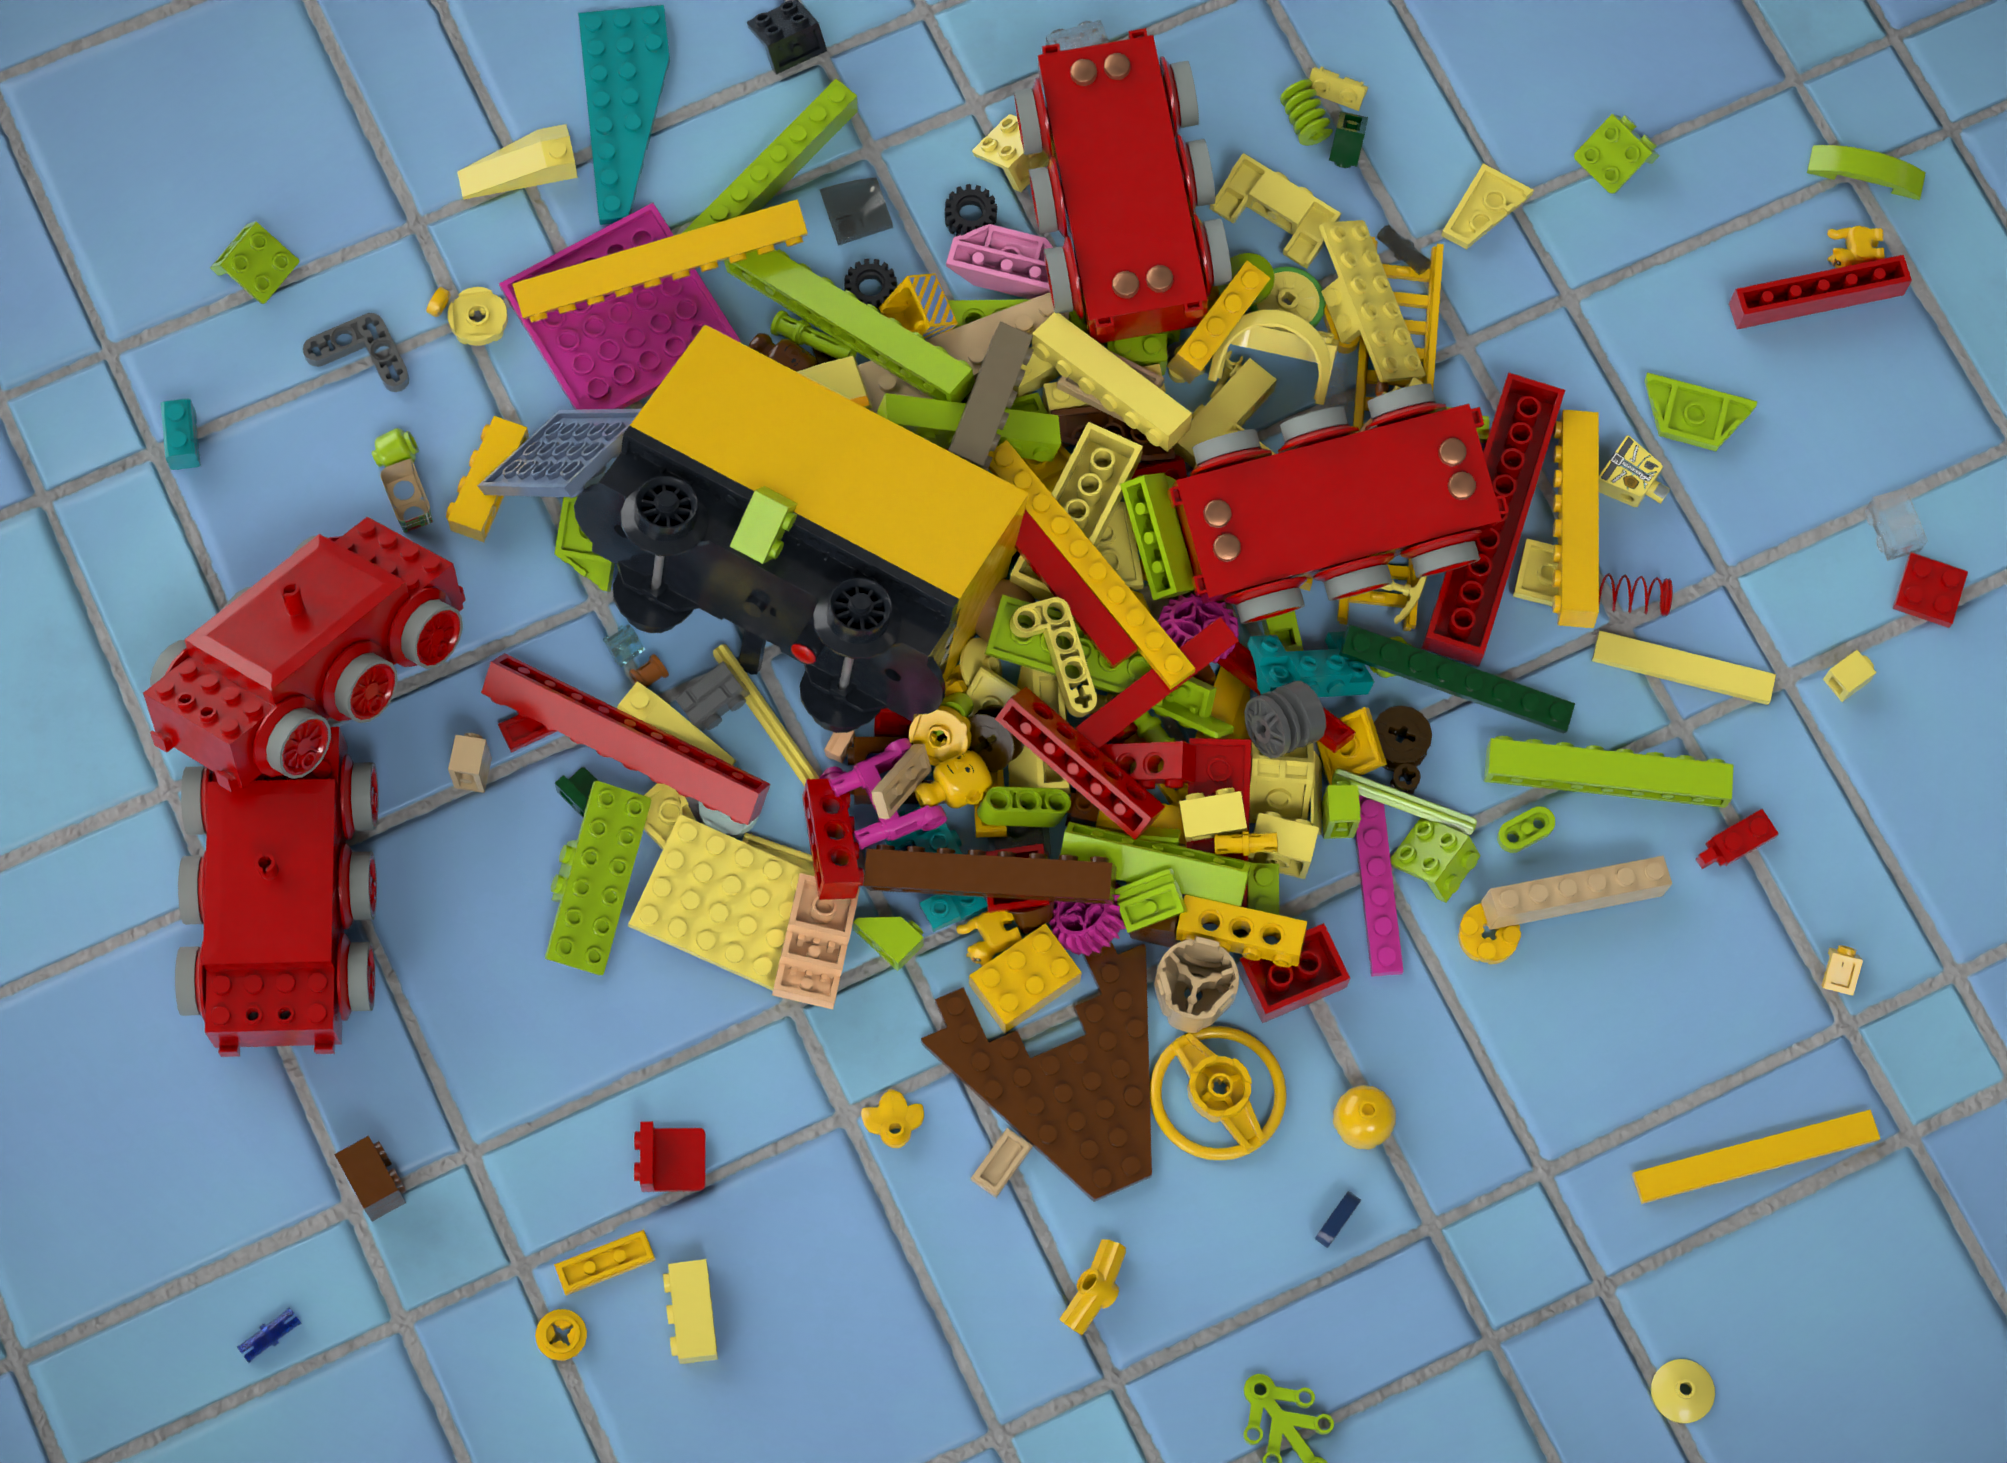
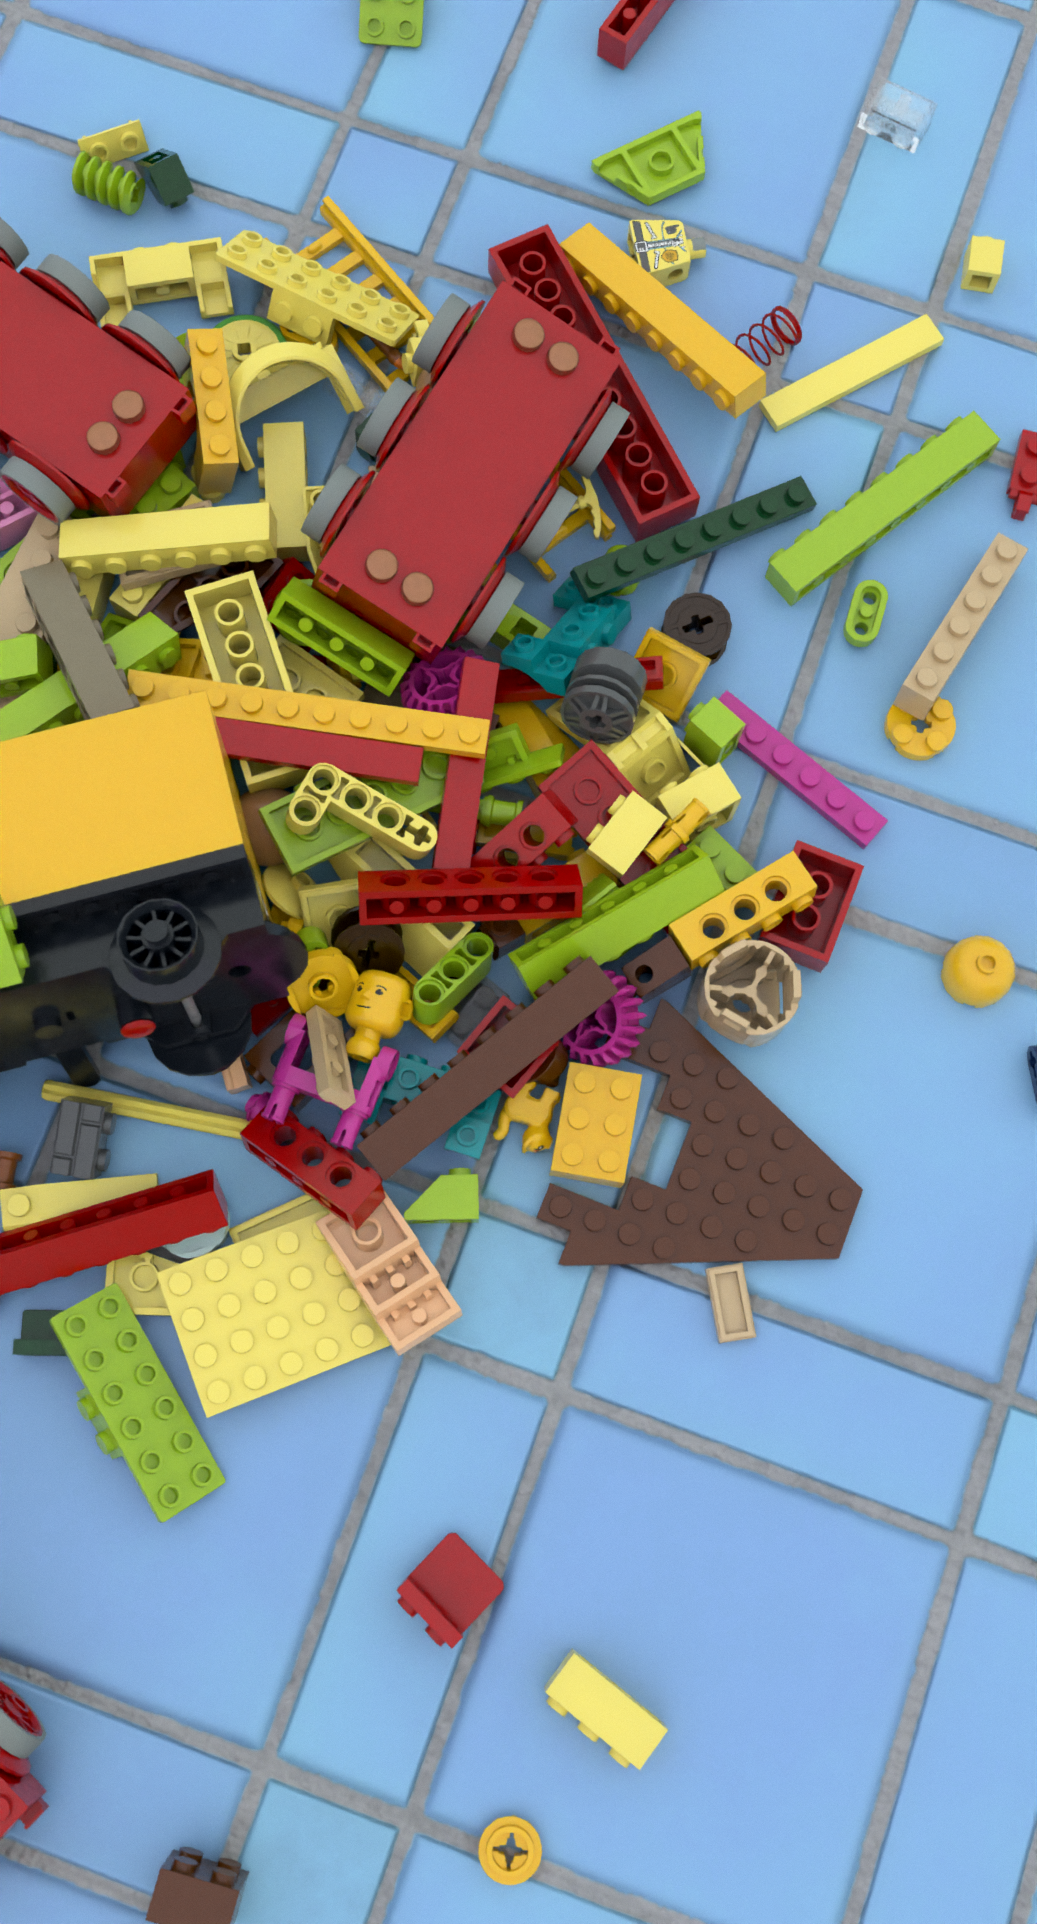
camera: 45 degrees left, 5 degrees up
(604, 1262) = (482, 1742): yellow tile -> none
(891, 1115) = (598, 1354): yellow plate -> none
(1095, 1287) = (916, 1334): yellow piece -> none
(1150, 900) = (646, 957): lime plate -> none
(1228, 367) = (252, 448): light yellow hand -> none
(1230, 1108) = (822, 1060): yellow piece -> none
(1404, 249) = (299, 228): clear smoke pin -> none
(1408, 802) = (753, 677): lime axle -> none
(1409, 773) = (737, 651): dark brown bush -> none
(1436, 856) = (818, 701): lime bracket -> none
(1484, 205) = (329, 138): light yellow wing -> none
(1536, 573) = (672, 396): light yellow plate -> none
(1930, 590) = (969, 146): red plate -> none

